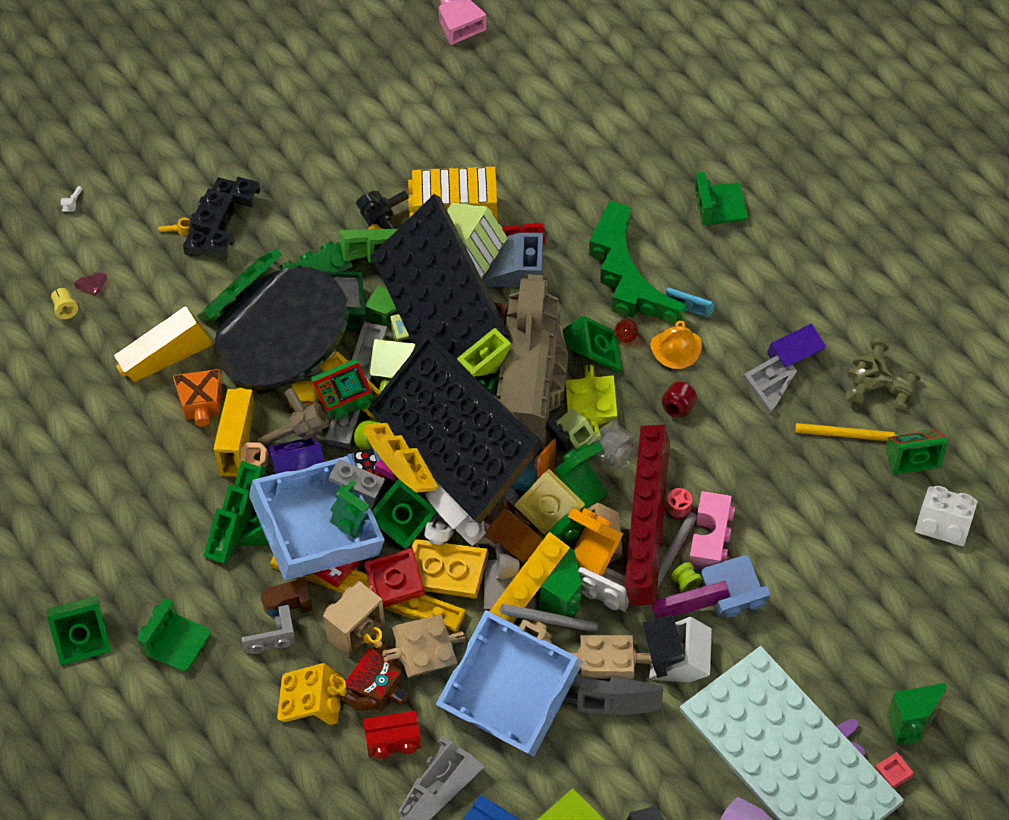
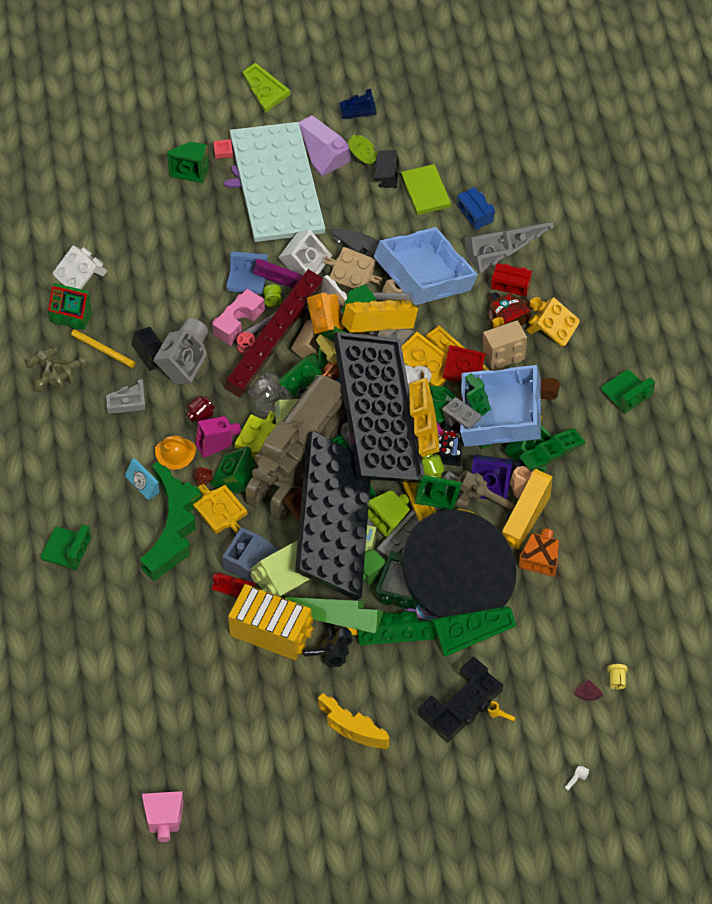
camera: 155 degrees left, 0 degrees up
(78, 630) = (690, 422): green slope -> none
(163, 346) = (551, 599): yellow slope -> none
(278, 639) = (557, 362): light grey bracket -> none
(314, 152) = (356, 728): none -> yellow slope
(424, 646) = (466, 315): tan plate -> none
(485, 355) = (334, 427): lime slope -> none
(585, 299) = (220, 509): none -> yellow plate
(639, 369) = (215, 435): none -> dark pink torso
(662, 643) = (316, 249): black panel -> none
(741, 443) = (183, 352): none -> light grey brick
(788, 444) = (147, 346): none -> black hinge
(796, 346) = (94, 412): dark purple panel -> none

